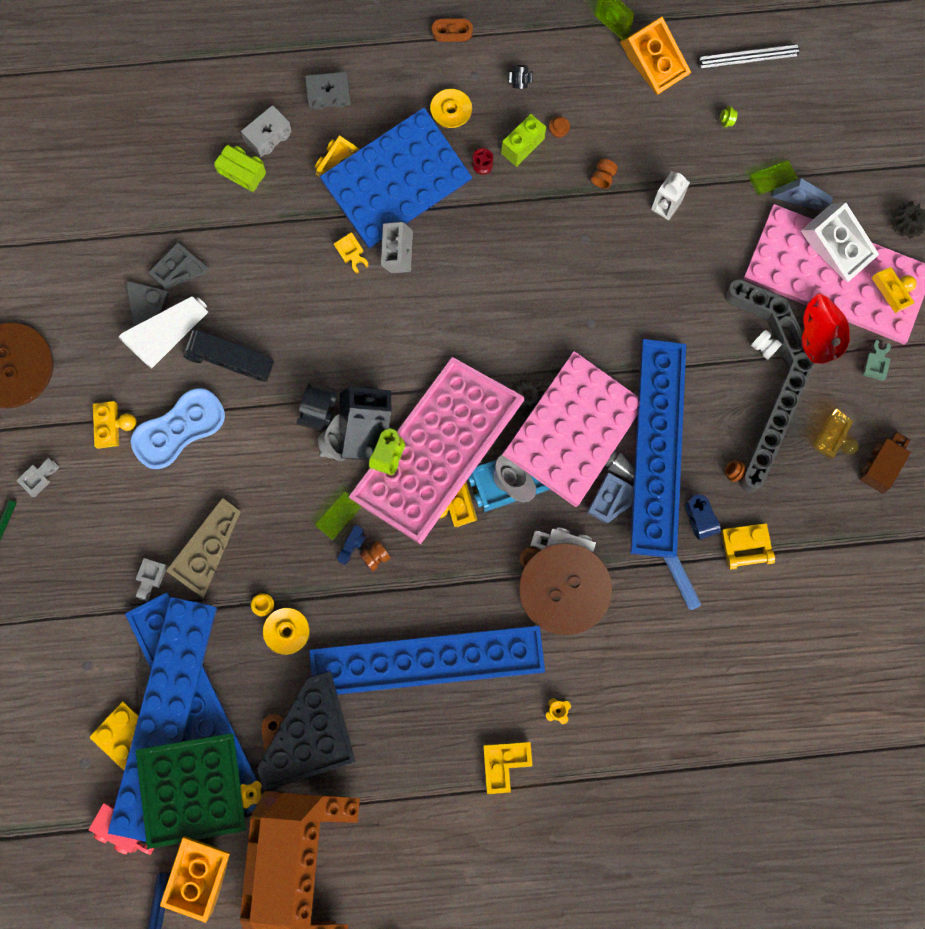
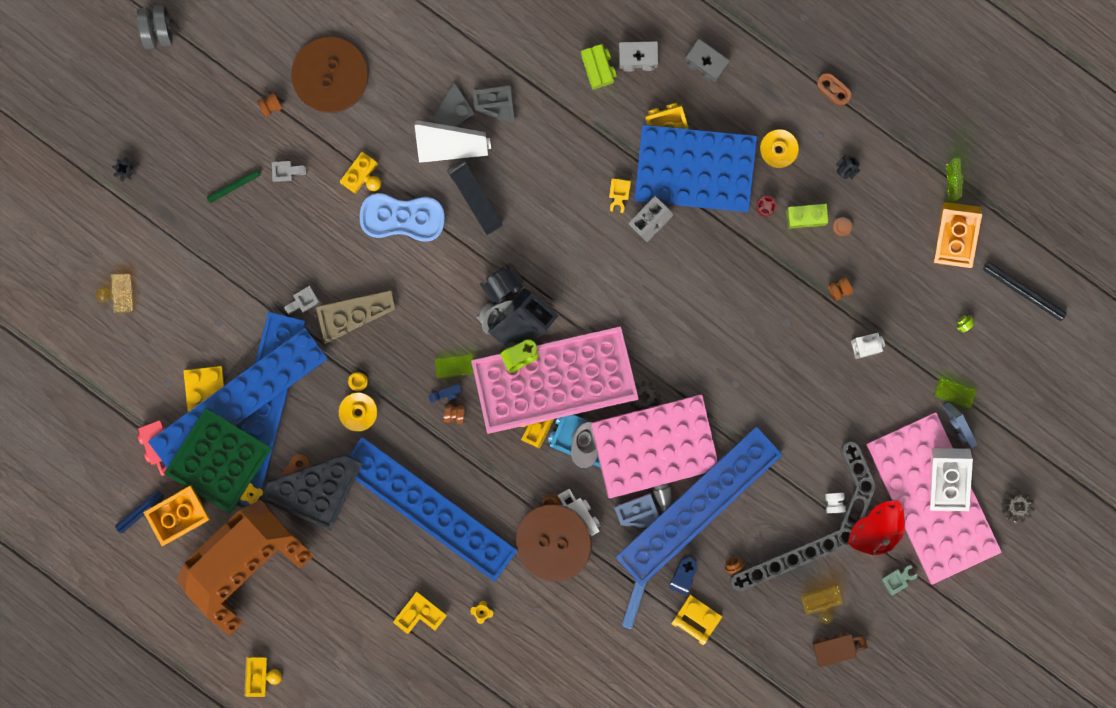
camera: 45 degrees right, 10 degrees up
(895, 289) = (954, 543): yellow plate -> none

